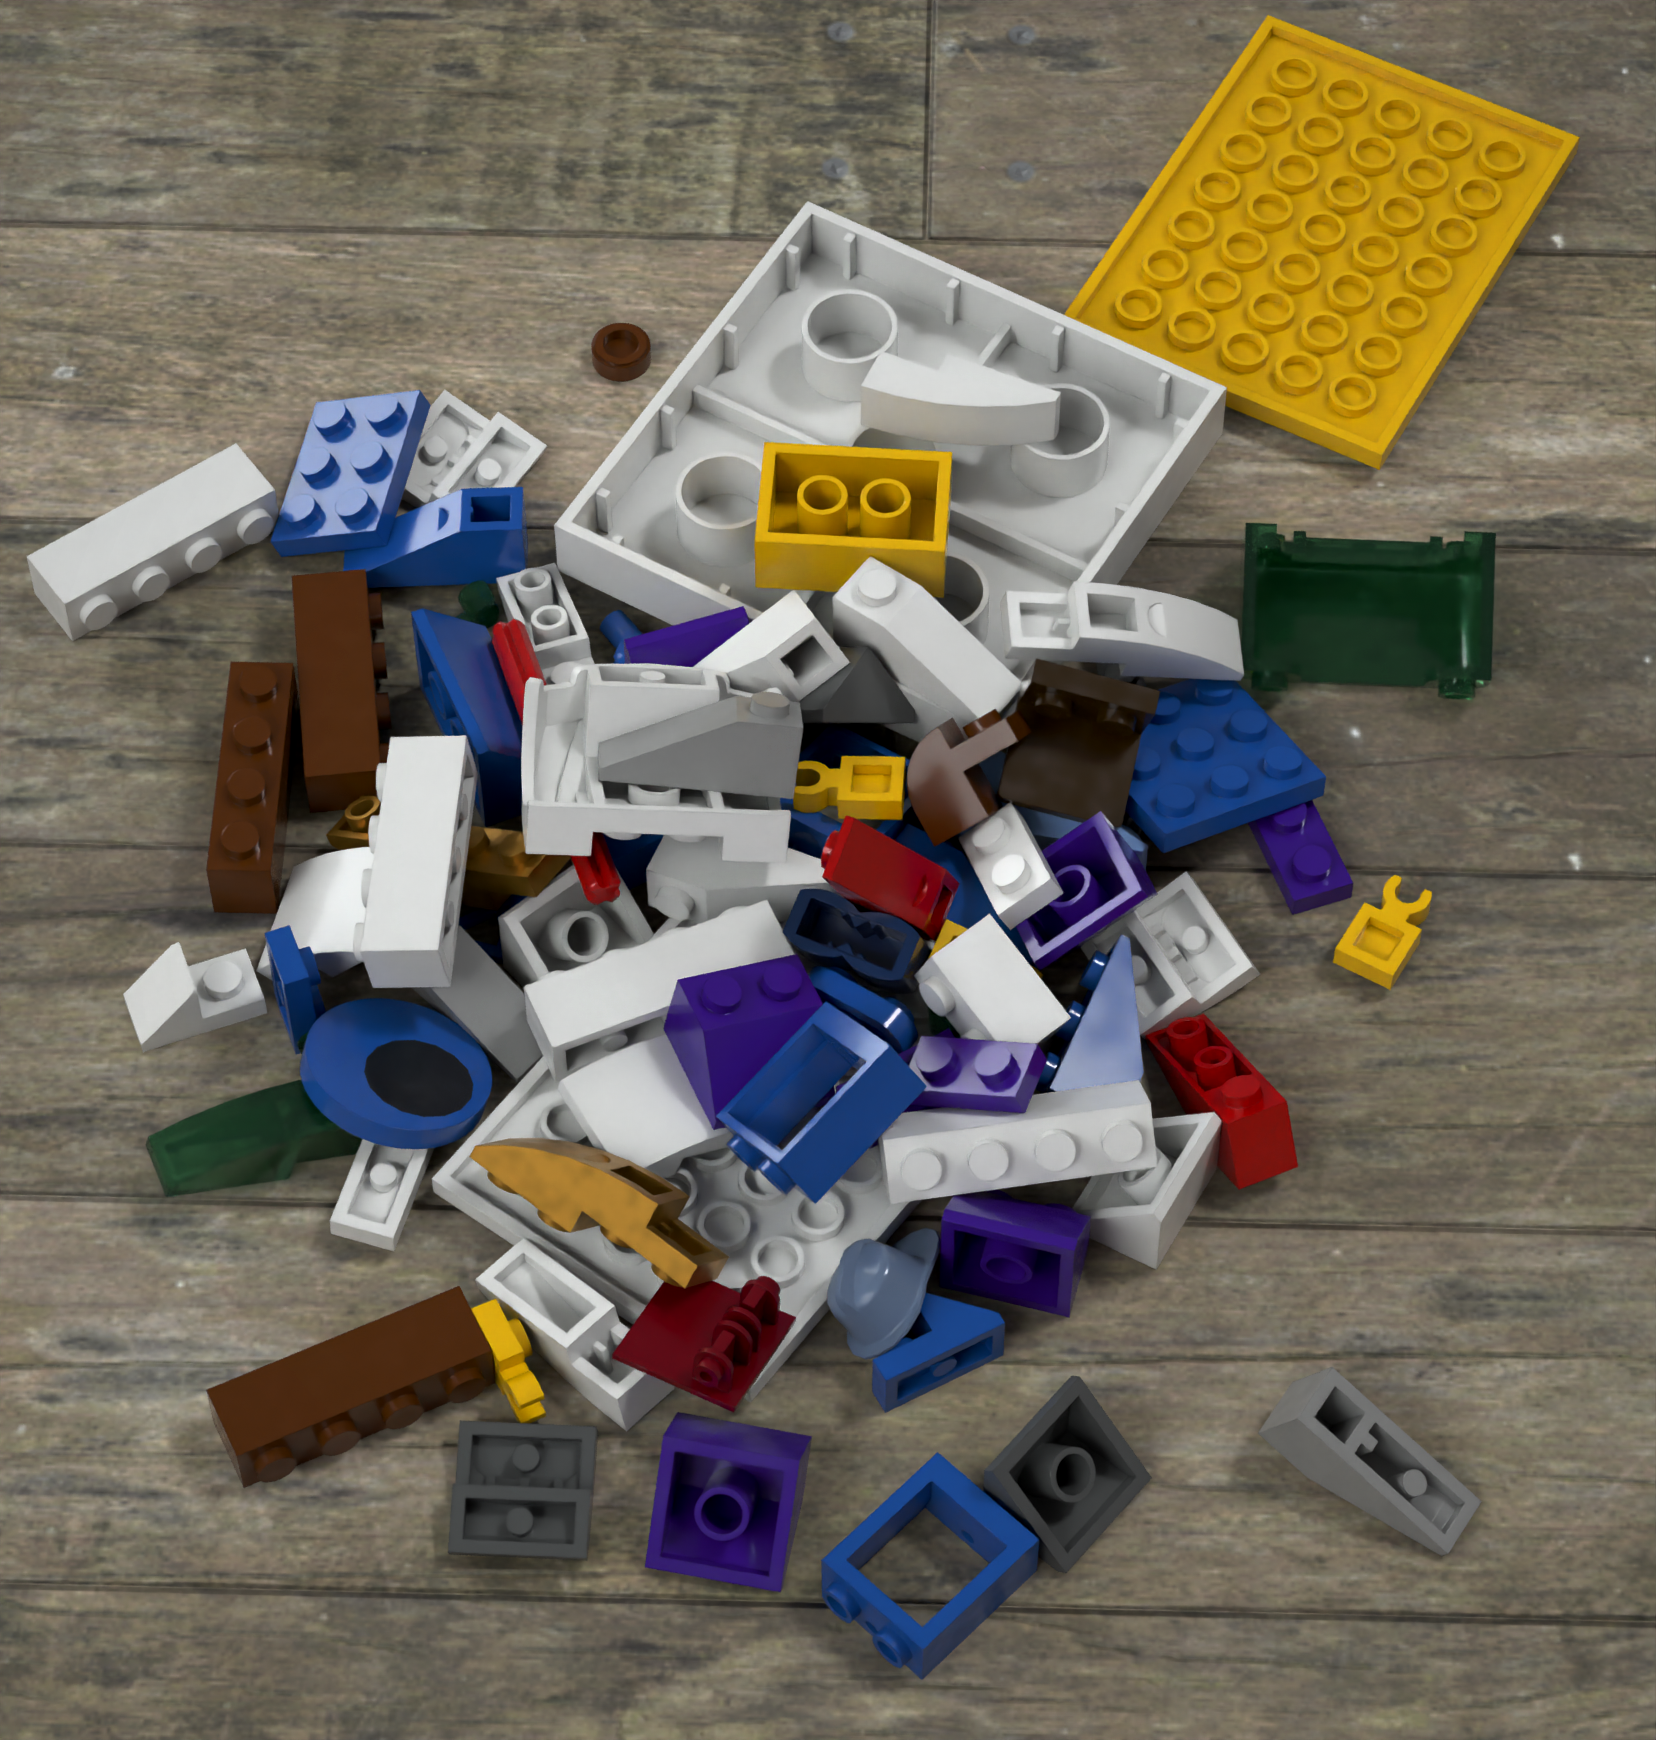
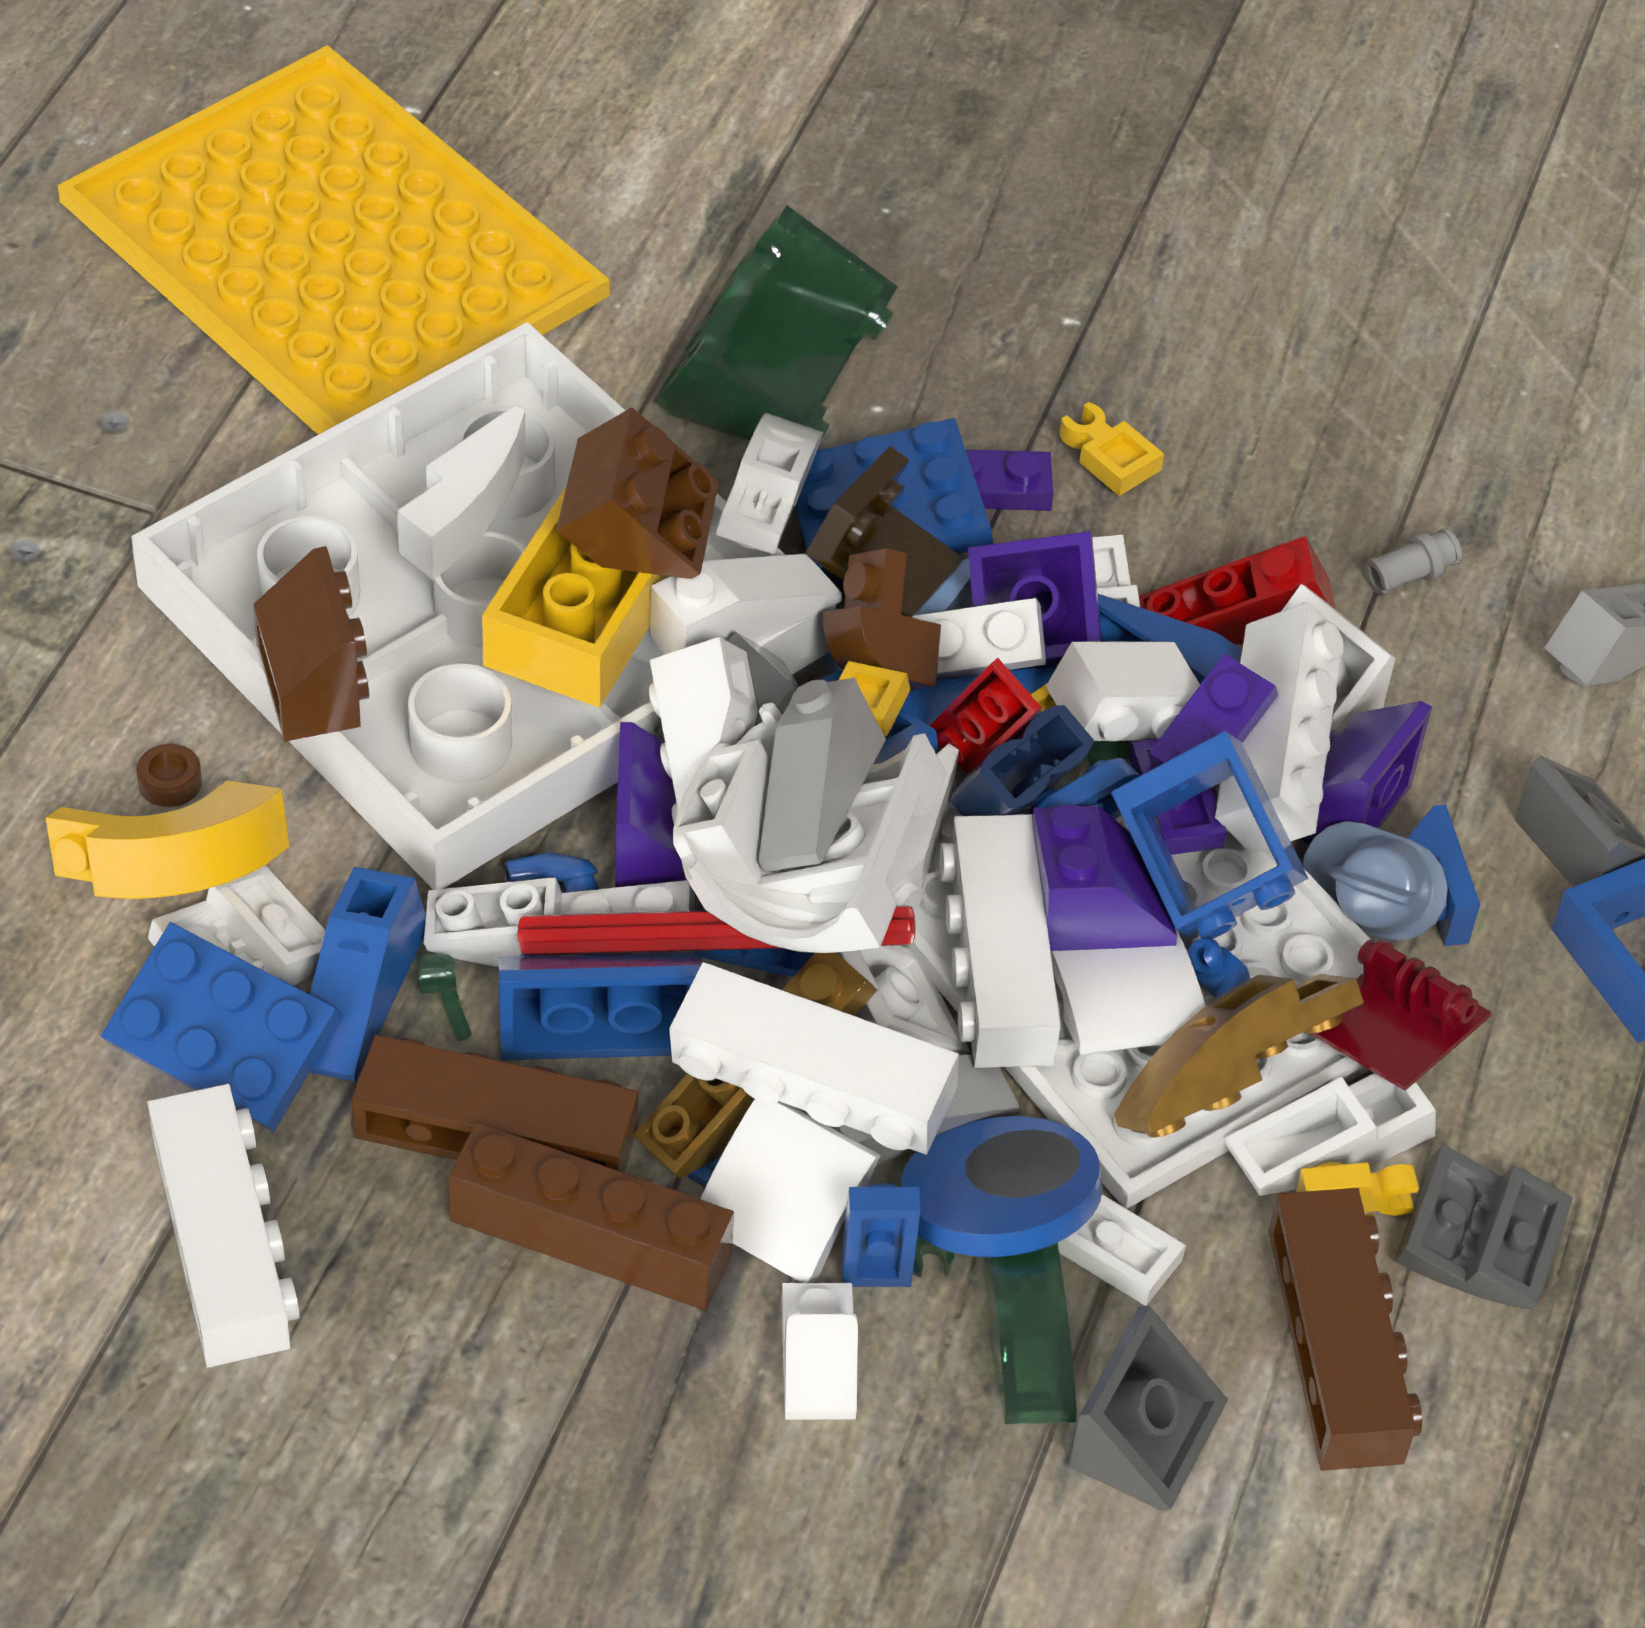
camera: 75 degrees left, 5 degrees down
(201, 1251) = (1147, 1415): none -> dark grey slope
(515, 380) = (173, 851): none -> yellow arch
(695, 356) = (312, 649): none -> reddish brown slope
(709, 1178) = (1216, 967): none -> blue arm
(727, 1501) = (1548, 1066): dark purple slope -> none
(932, 501) = (637, 500): none -> reddish brown slope
(1375, 1246) = (1421, 558): none -> light grey pin

